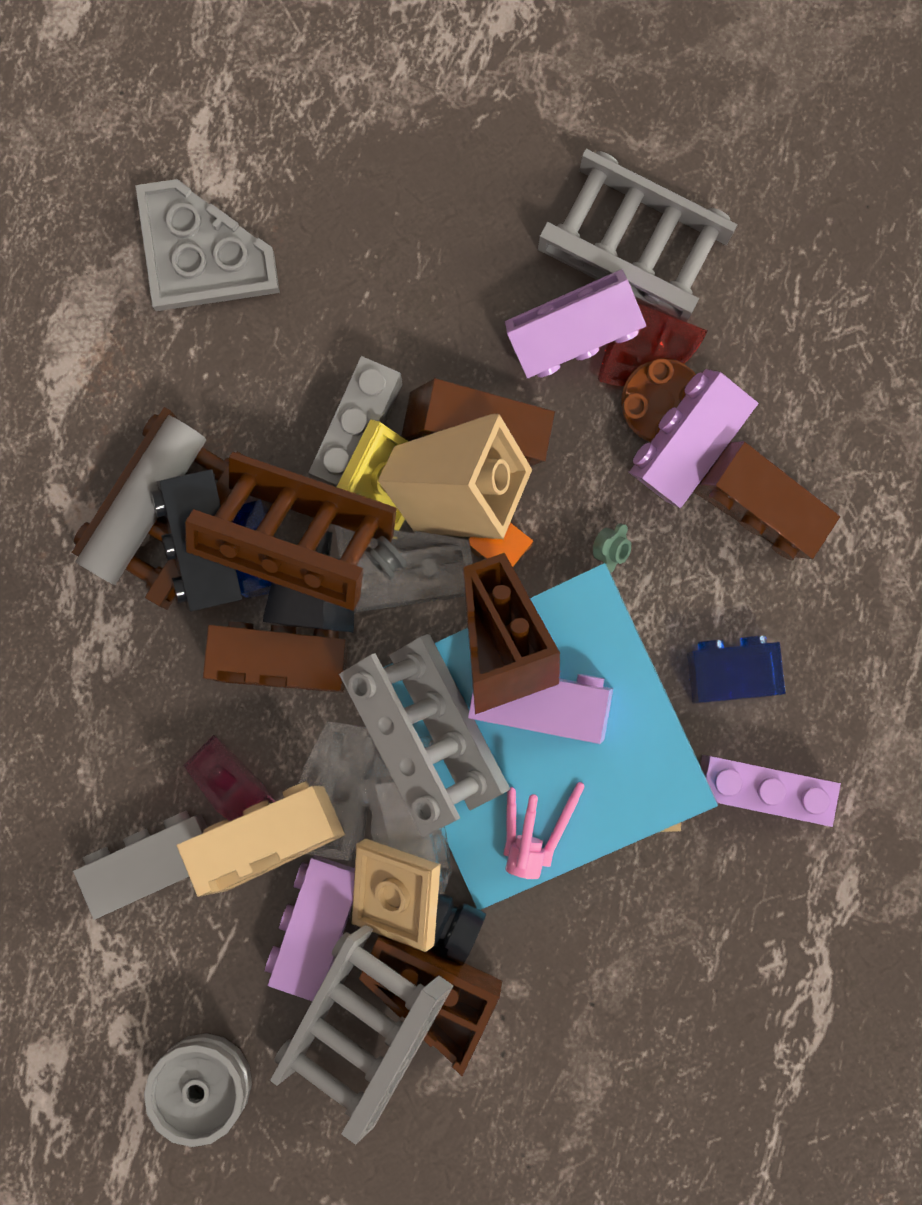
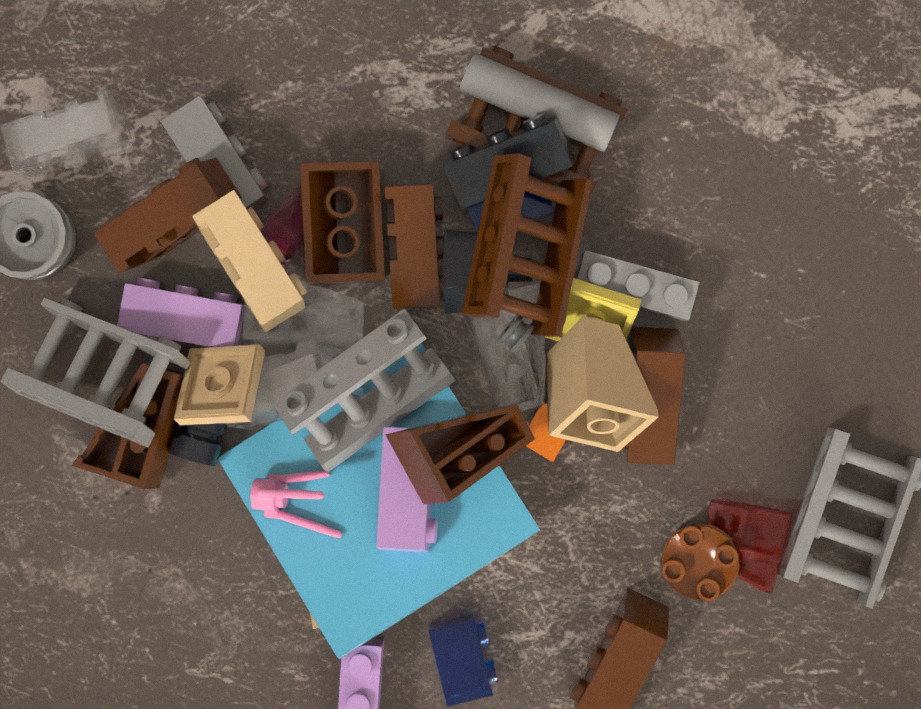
camera: 85 degrees right, 5 degrees up
(94, 1027) = (67, 135): none -> clear wedge
(198, 250) = (780, 115): light grey plate -> none
(199, 930) = (164, 217): none -> reddish brown wedge
(237, 732) = (342, 222): none -> reddish brown slope
(575, 325) = (757, 472): lavender brick -> none
(612, 546) = (559, 533): sand green plate -> none
(692, 436) = (668, 593): lavender brick -> none

